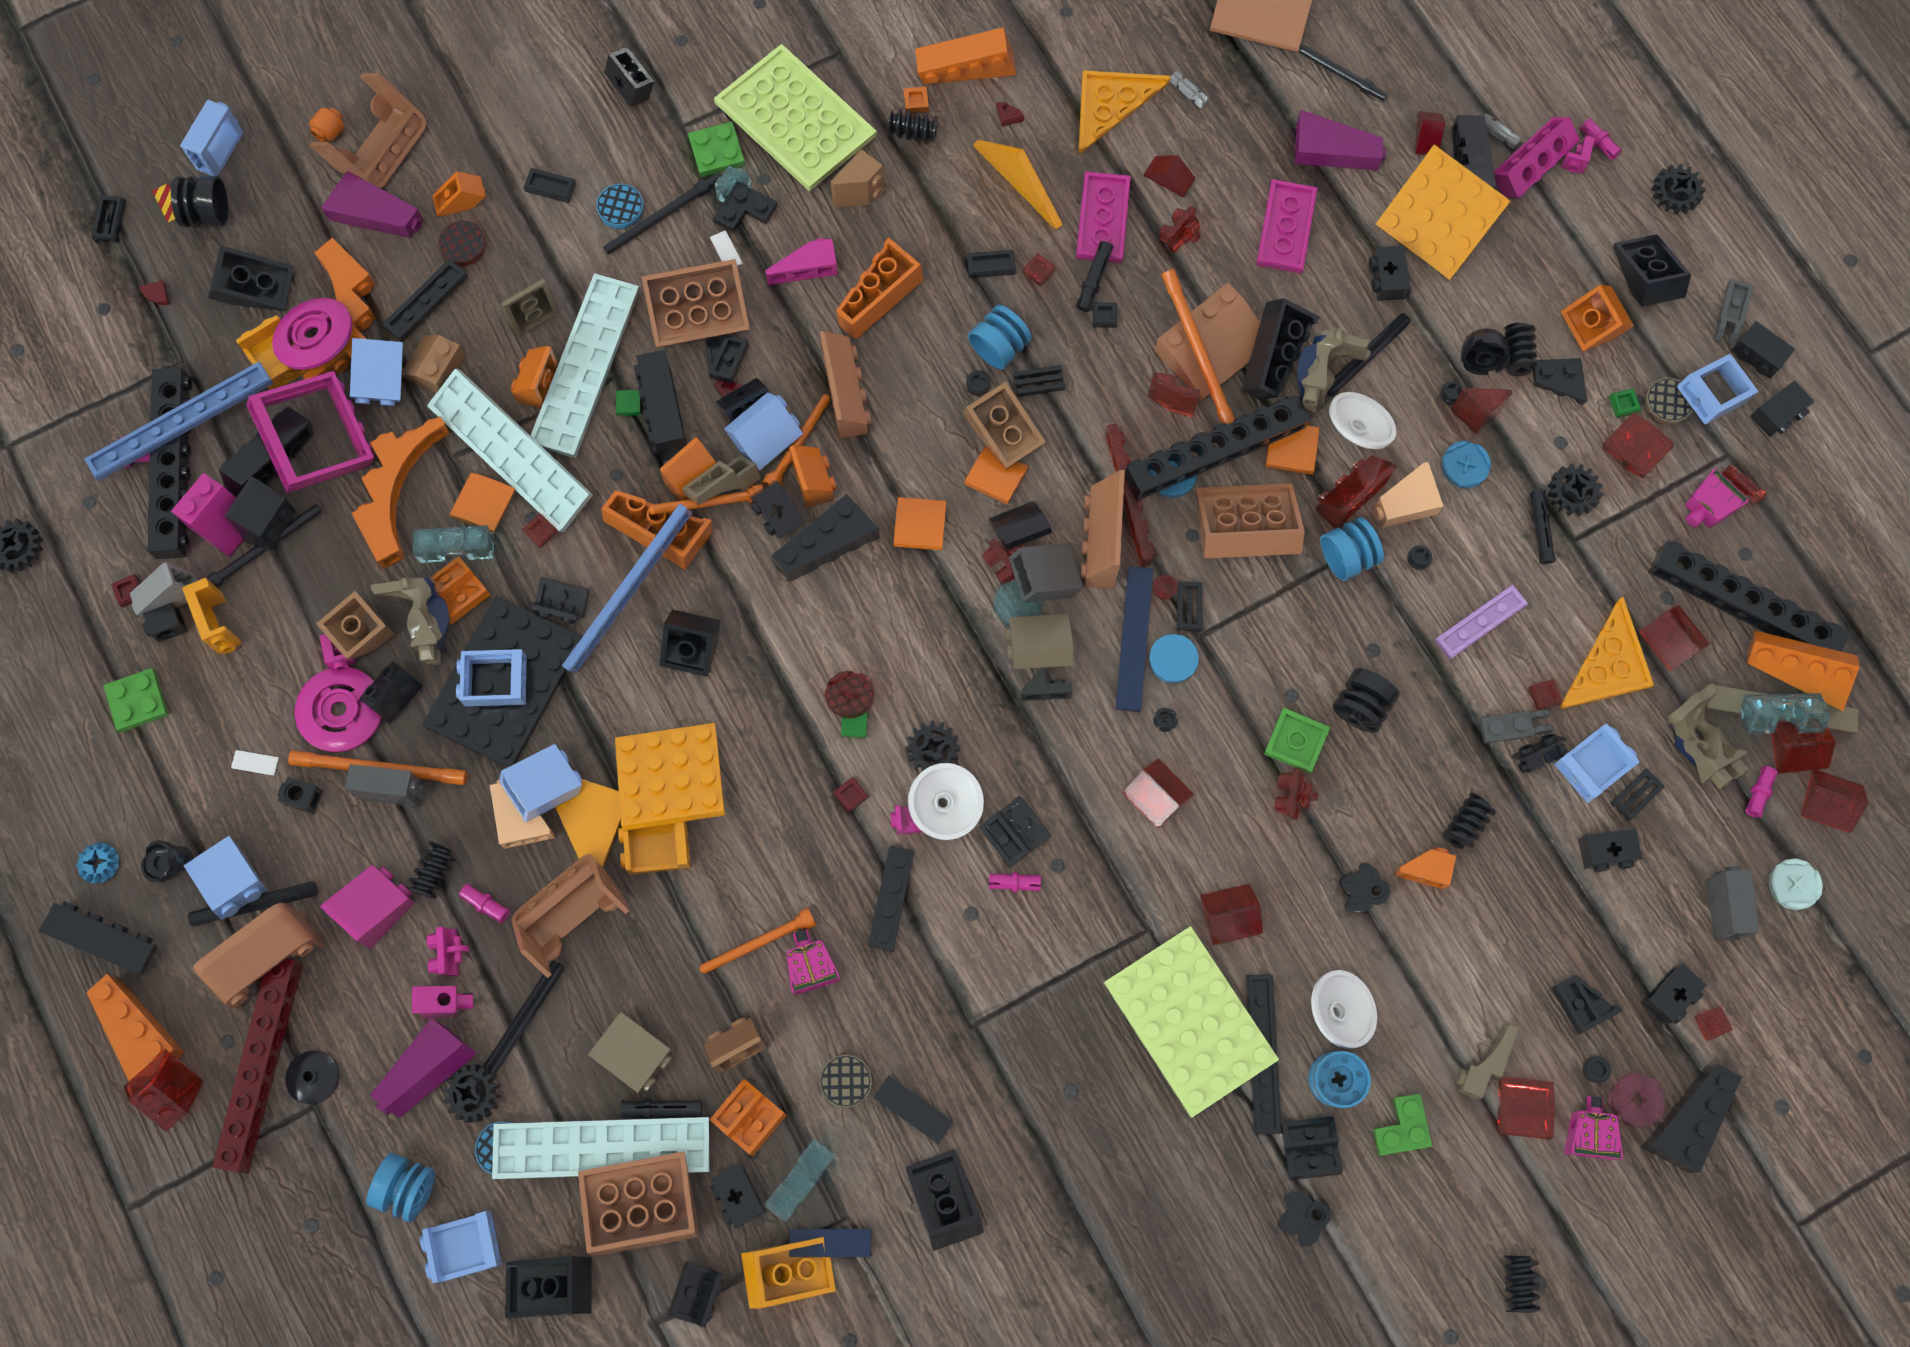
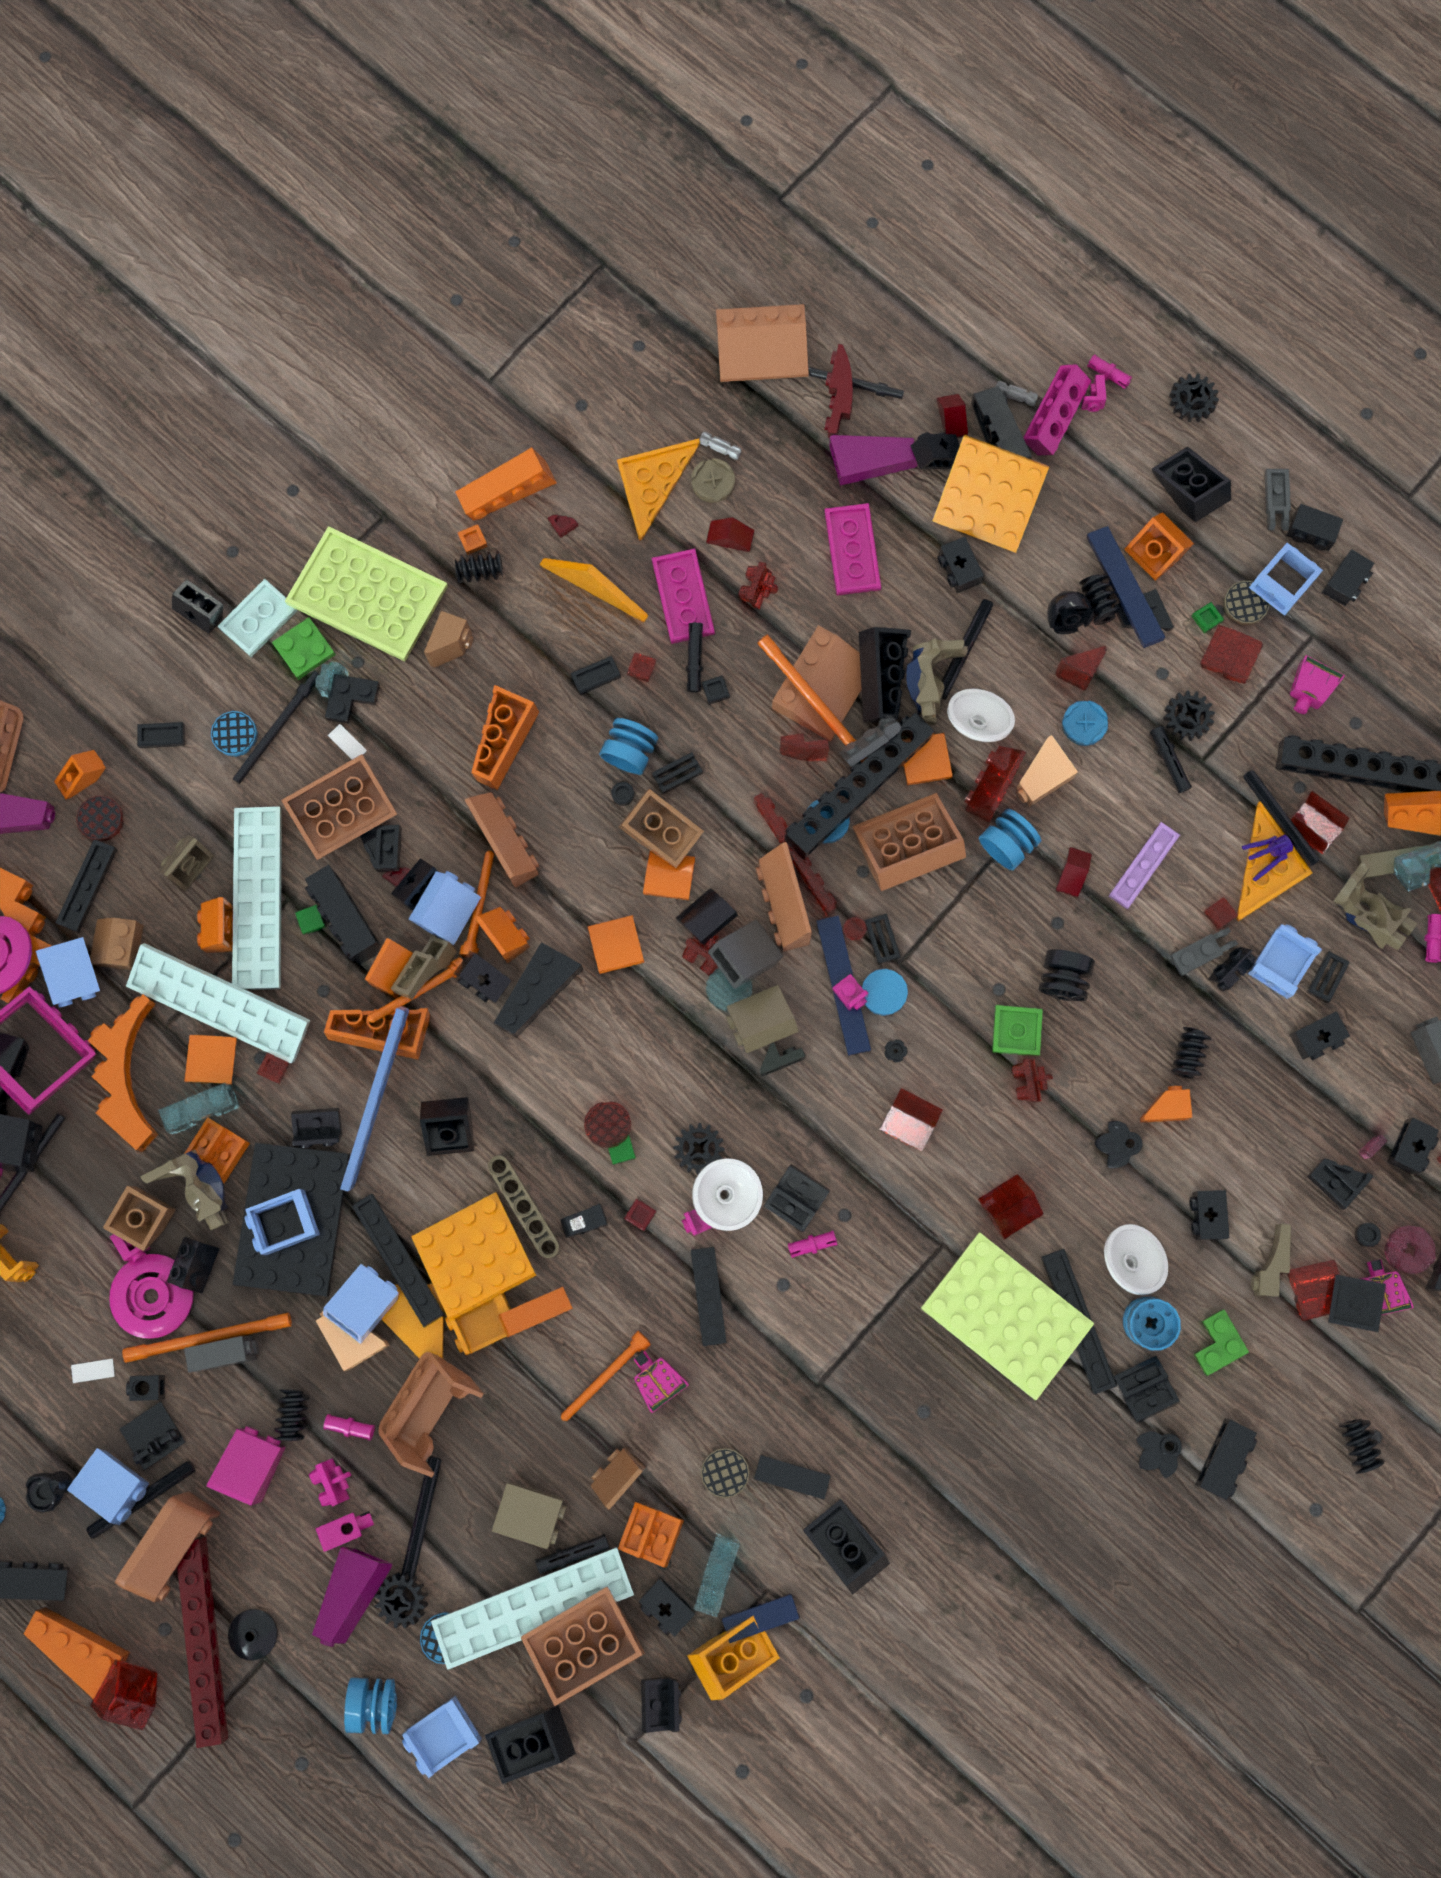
camera: 15 degrees left, 5 degrees up
(288, 845) = (152, 1436): none -> black hinge
(593, 756) = (398, 1260): none -> black tile
(682, 107) = (257, 618): none -> light aqua tile
(711, 852) = (535, 1312): none -> orange tile
(734, 735) = (516, 1198): none -> dark tan beam
(792, 781) = (584, 1221): none -> black leg
(808, 262) = (428, 730): dark pink slope -> none
(1139, 646) = (850, 993): none -> dark pink bracket
(1170, 119) = (713, 480): none -> dark tan tile
(1243, 407) = (871, 740): none -> dark grey hinge
(1325, 72) = (840, 385): none -> dark red slope
(1373, 1249) = (1226, 1459): none -> black brick
(1400, 156) = (935, 450): none -> black brick
(1406, 605) = (1074, 872): none -> dark red slope
(1419, 557) = (1071, 824): black plate -> none
(1446, 983) = (1211, 1202): none -> black brick
(1450, 392) = (1050, 659): black plate -> none
(1550, 346) = (1125, 587): none -> dark blue tile
(1563, 1132) = (1357, 1303): none -> black plate
(1624, 646) = (1277, 847): none -> dark purple plant
(1630, 980) = (1372, 1146): none -> clear pink tile
(1638, 620) = (1281, 818): none -> black axle
(1744, 484) = (1335, 659): clear red axle -> none

